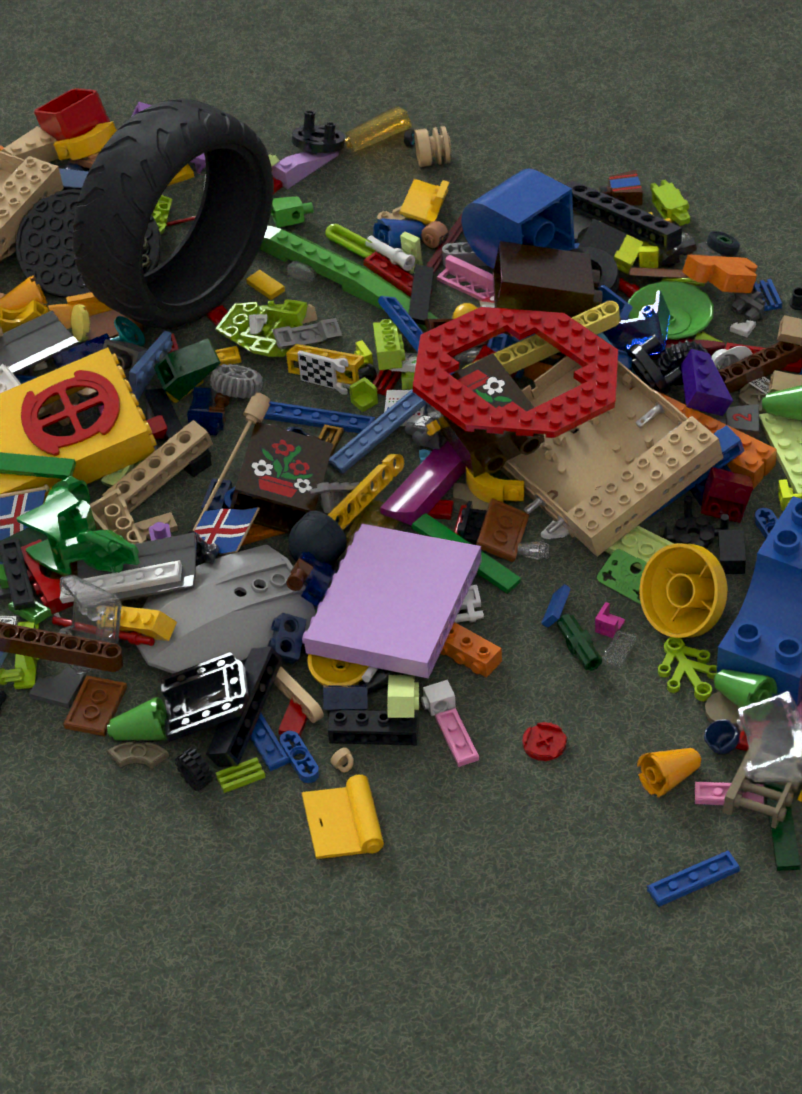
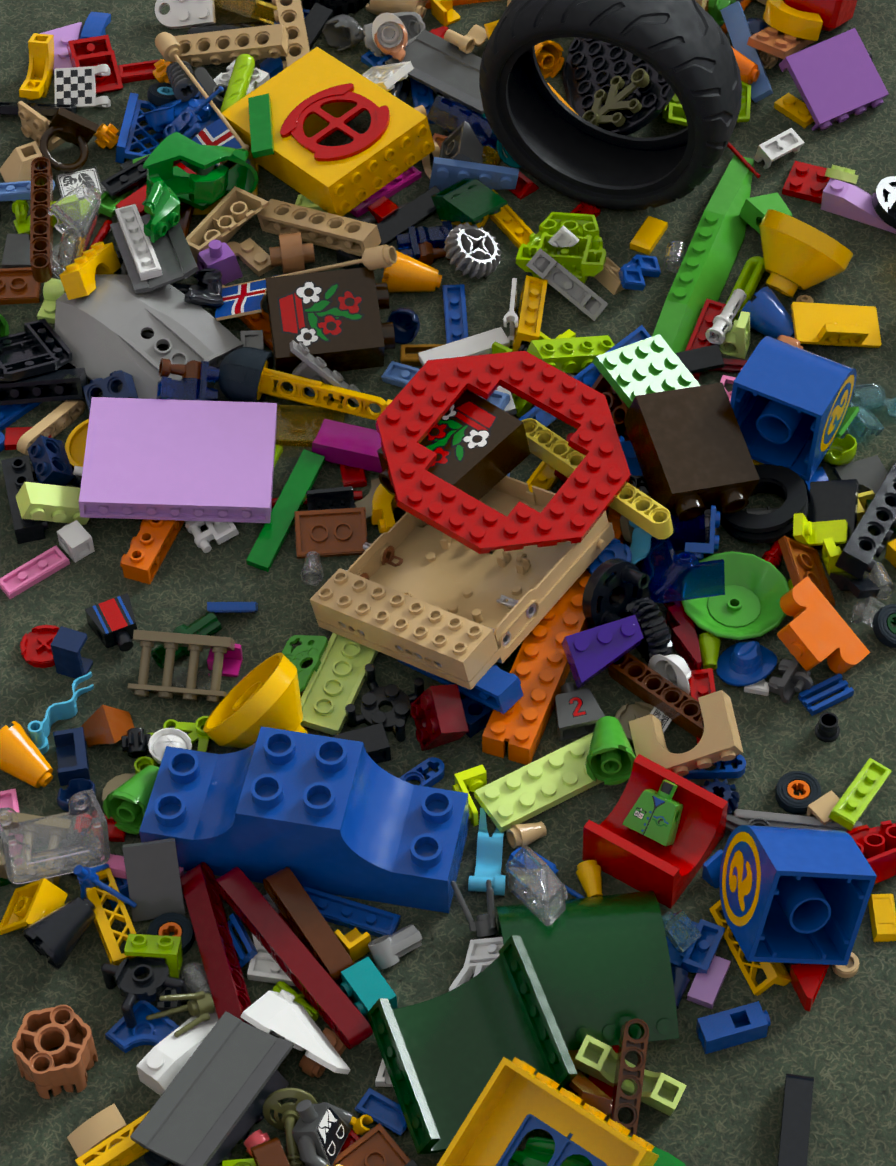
camera: 70 degrees right, 5 degrees up
(138, 673) = (51, 291): none -> yellowish green plate
(177, 493) = (291, 253): none -> medium nougat piece
(229, 431) = (411, 275): none -> light orange cone
(261, 538) = (253, 339): none -> light grey bracket
(304, 294) = (632, 273): none -> blue tile
(341, 412) = (474, 345): none -> white tile
(350, 195) = (798, 253): none -> yellow cone
(440, 301) = (644, 369): none -> plate
(543, 685) = (113, 622): none -> black torso
(574, 712) = (66, 653): none -> dark blue panel
(594, 640) = (171, 643): none -> dark tan fence
(633, 743) = (39, 731): none -> medium azure flag
(656, 710) = (107, 726): none -> dark orange slope
(676, 734) = (71, 755): none -> dark blue panel
(679, 689) = (136, 742): none -> black gear
(694, 666) = (167, 737): none -> white hat
(727, 326) = (745, 663): none -> blue hat

